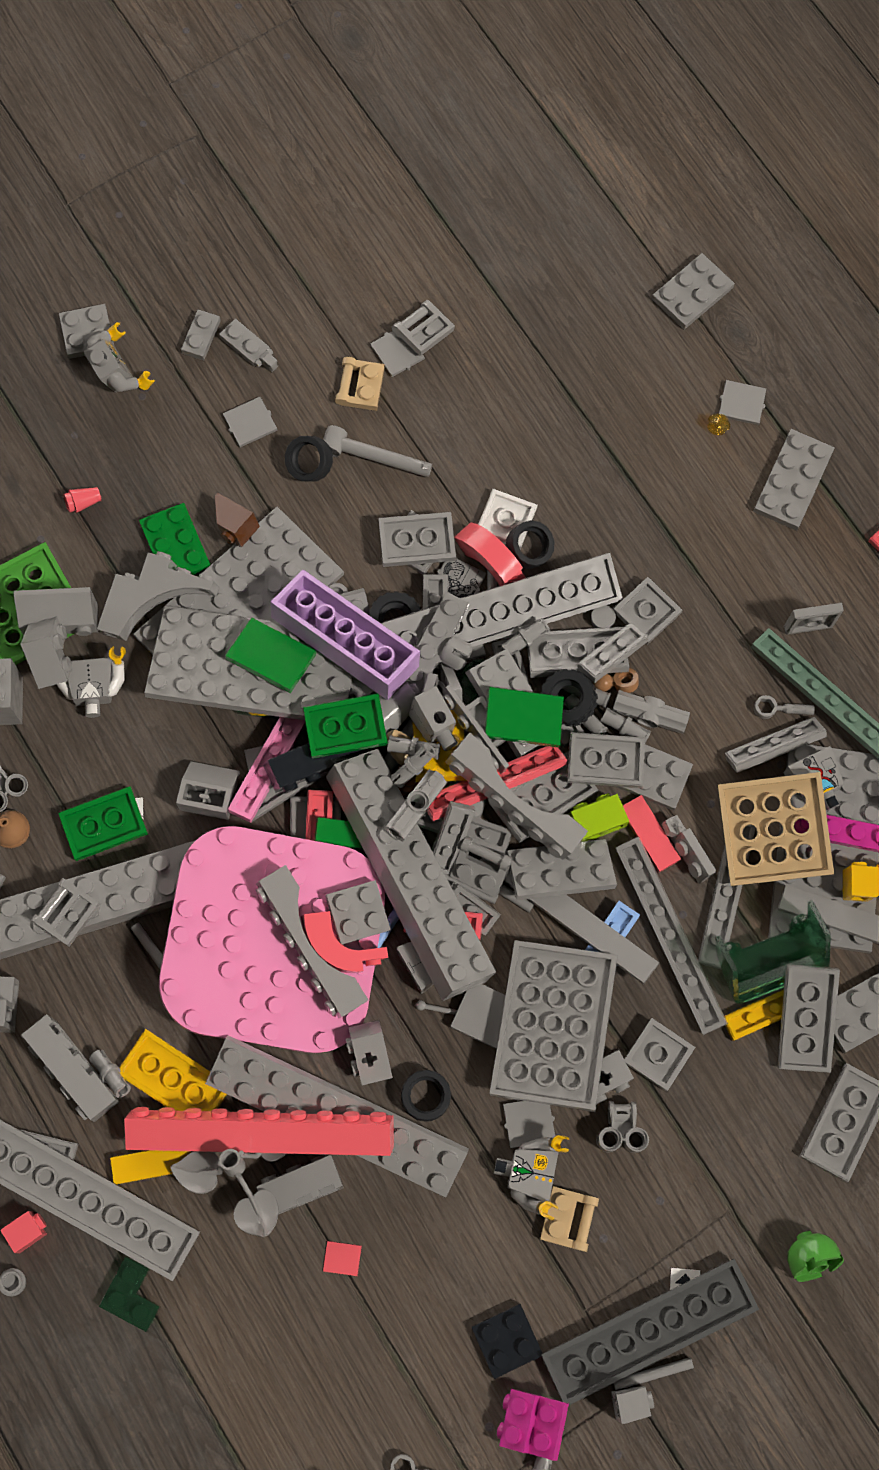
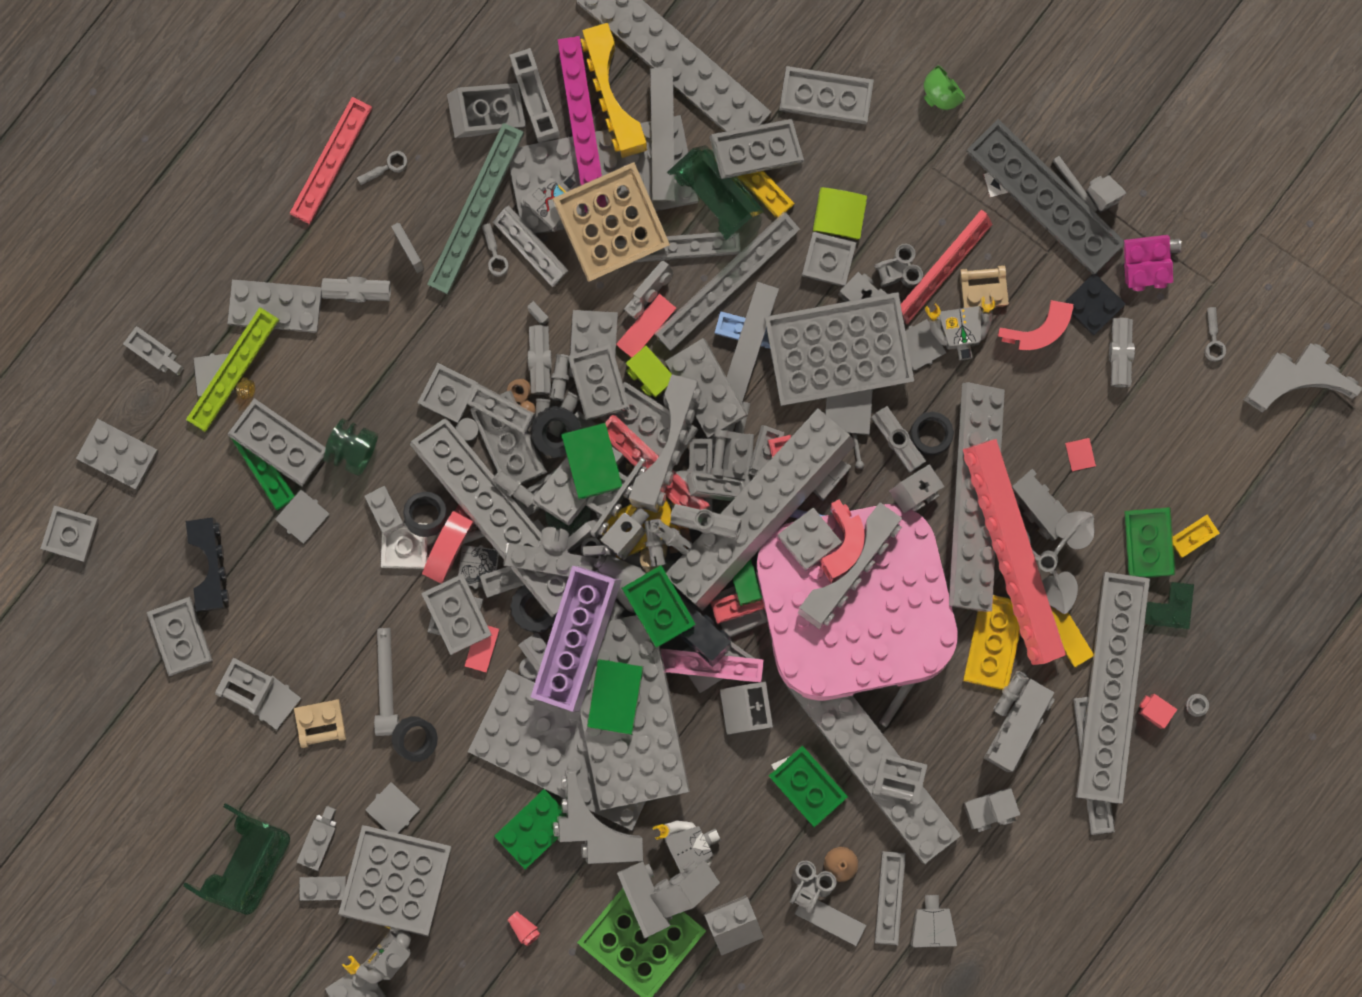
camera: 110 degrees left, 10 degrees up
(178, 396) = (395, 880): none -> light grey plate
(200, 1354) = (1194, 536): none -> yellow plate
(212, 1298) = (1150, 542): none -> green tile
(234, 521) = (499, 781): reddish brown slope -> none
(245, 277) = (249, 867): none -> clear green windscreen
(370, 554) = (481, 652): none -> coral tile
(440, 1351) = (1121, 352): none -> light grey piece
(450, 1051) = (890, 426): none -> light grey piece
(494, 289) = (179, 636): none -> light grey tile
(500, 1285) = (1054, 325): none -> coral arch
(548, 509) = (384, 510): none -> light grey plate
(571, 434) = (302, 516): none -> light grey piece
(581, 339) = (210, 593): none -> black arch
(608, 1181) = (945, 266): none -> coral tile
(624, 495) = (353, 448): none -> clear green wheel
(630, 224) = (69, 533): none -> light grey plate
(634, 415) = (268, 477): none -> green tile
(653, 435) = (277, 442): none -> light grey tile
(700, 726) = (537, 313): none -> light grey tile
(706, 1086) = (840, 213): none -> lime slope
(742, 418) = (232, 369): none -> lime tile
(784, 352) = (152, 351): none -> light grey hinge
(785, 559) = (356, 289): none -> light grey piece

